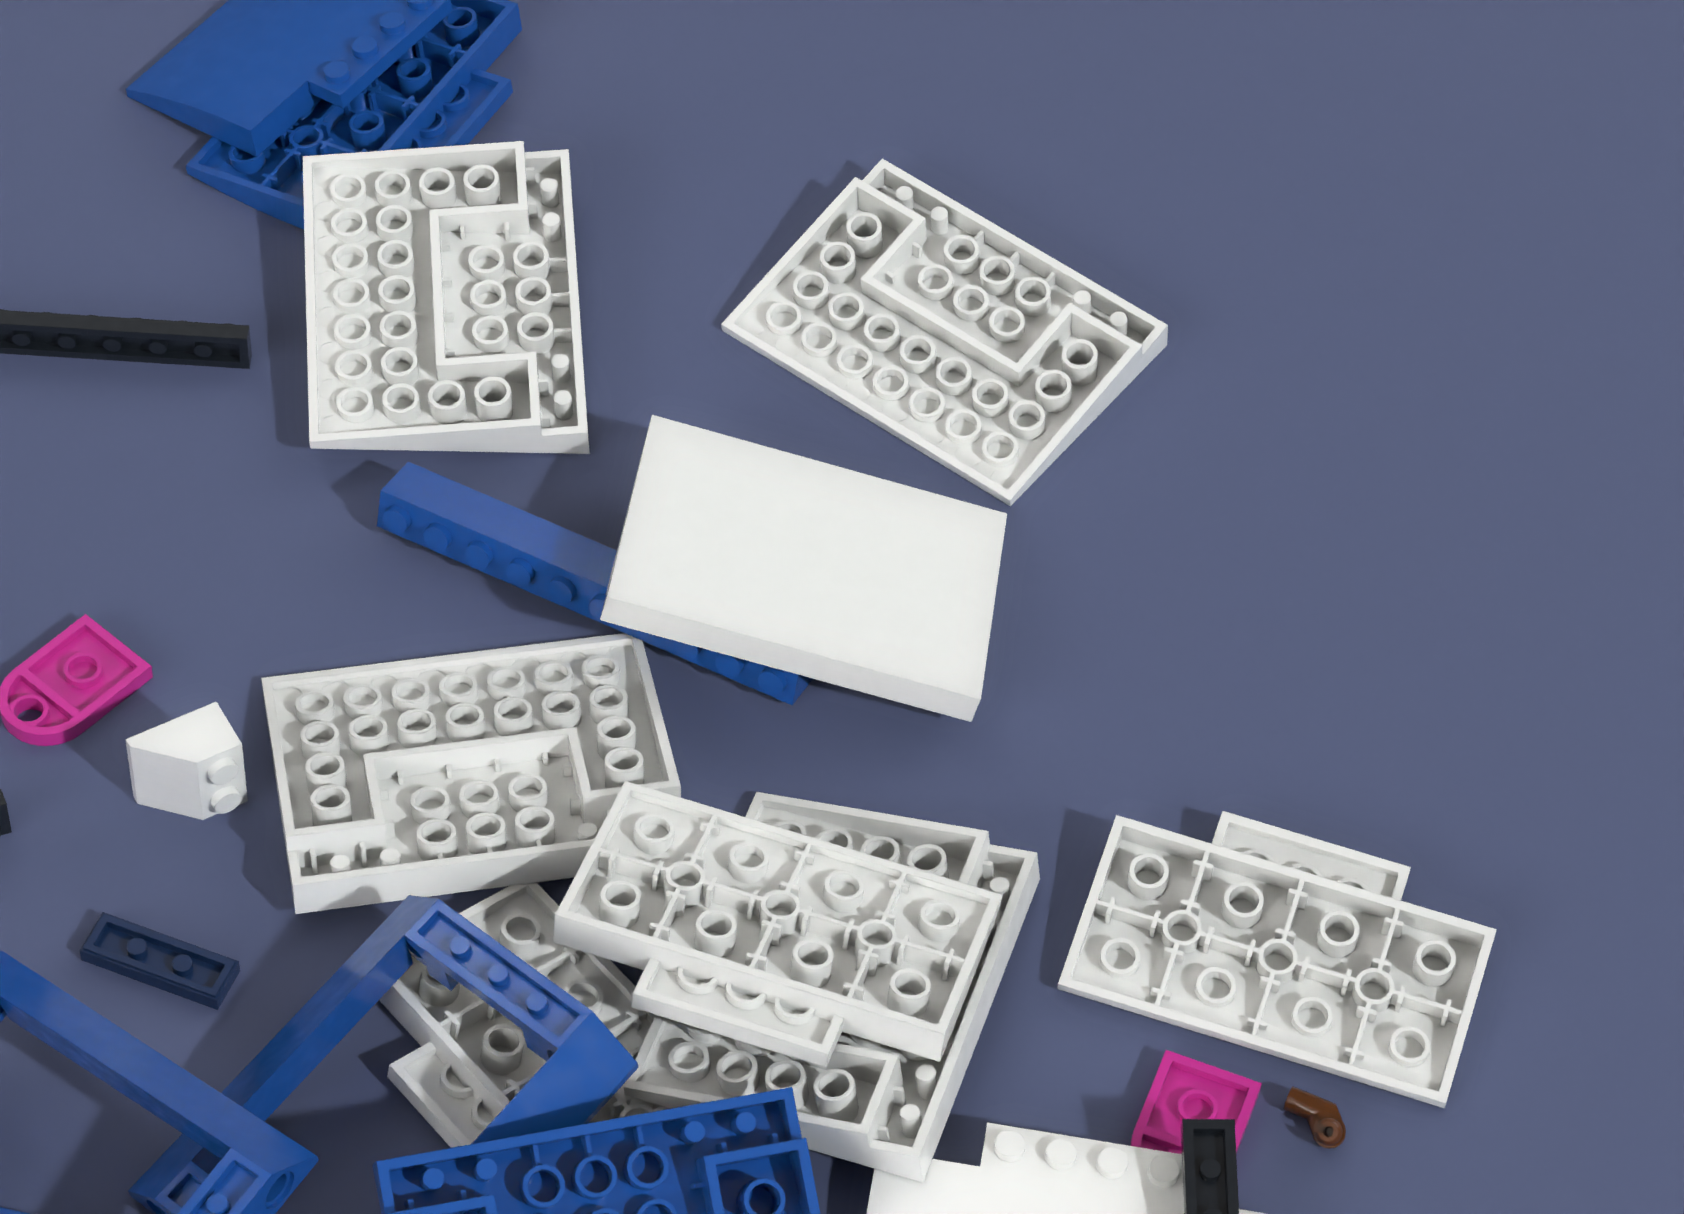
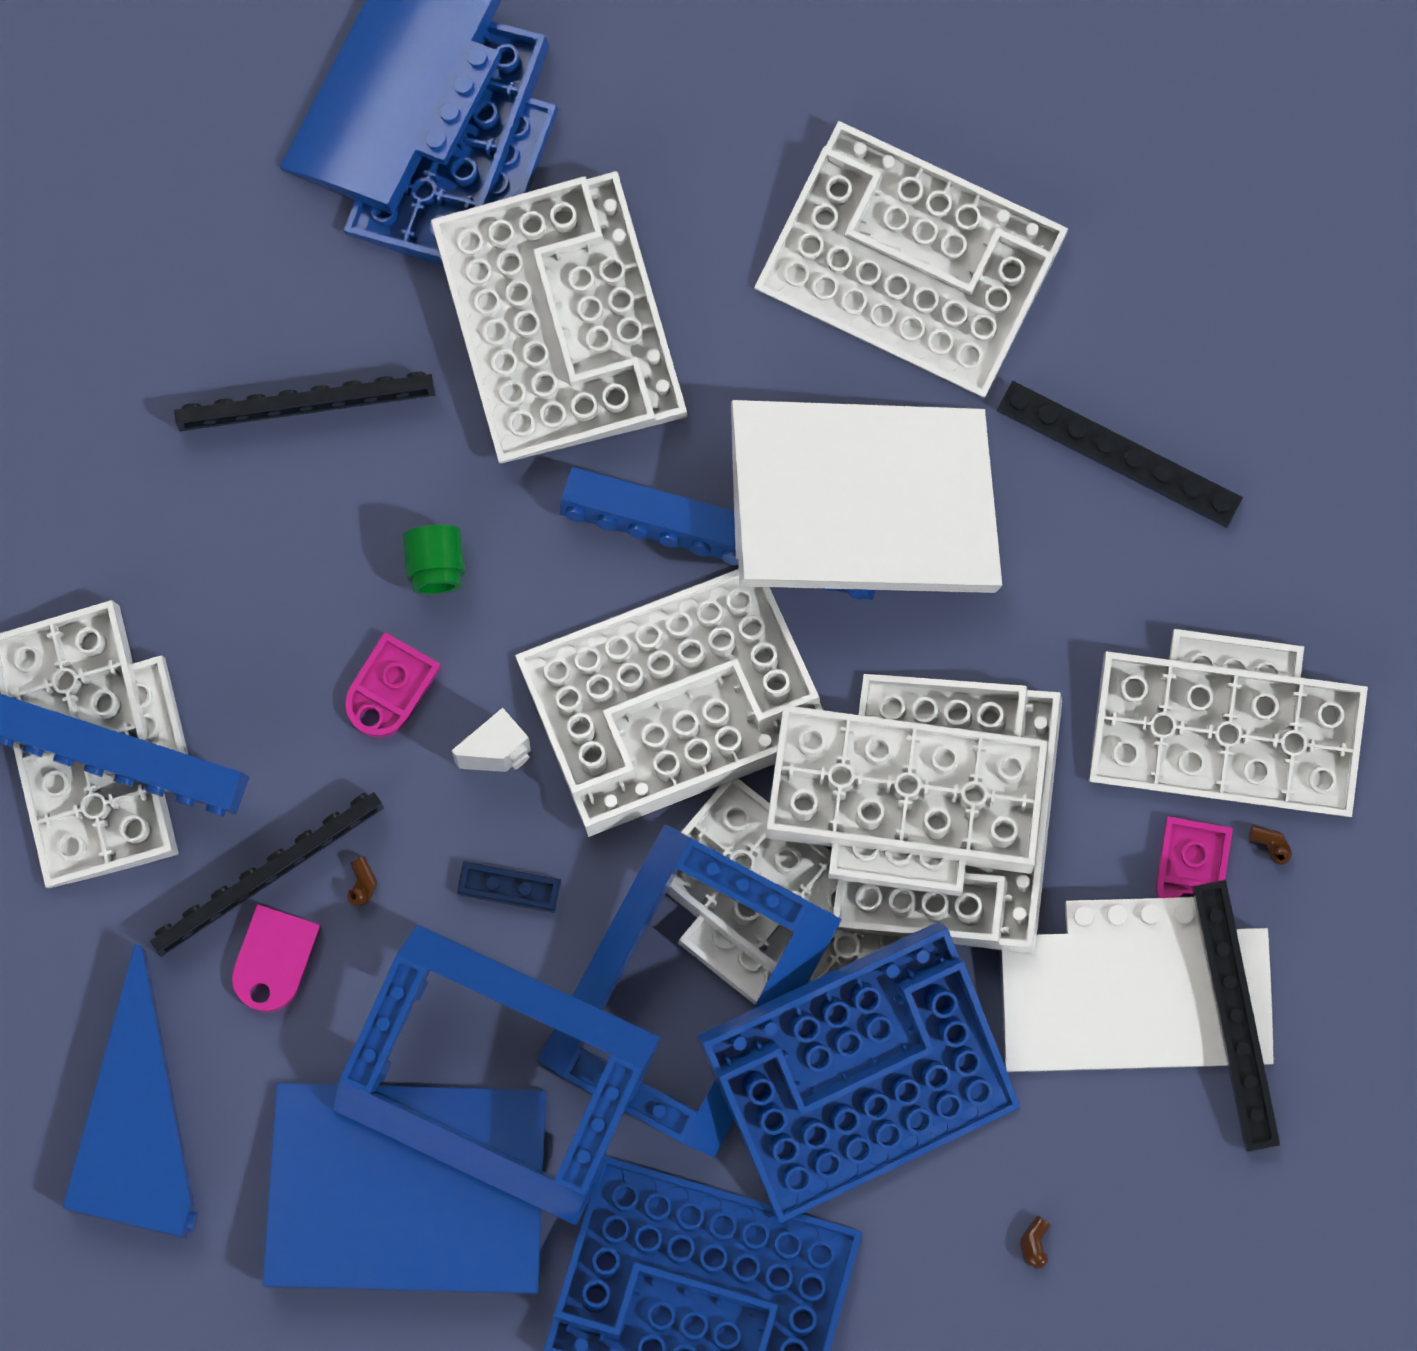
camera: 10 degrees left, 25 degrees up
(182, 531) = (434, 558): none -> green piece
(1189, 601) = (1119, 454): none -> black plate

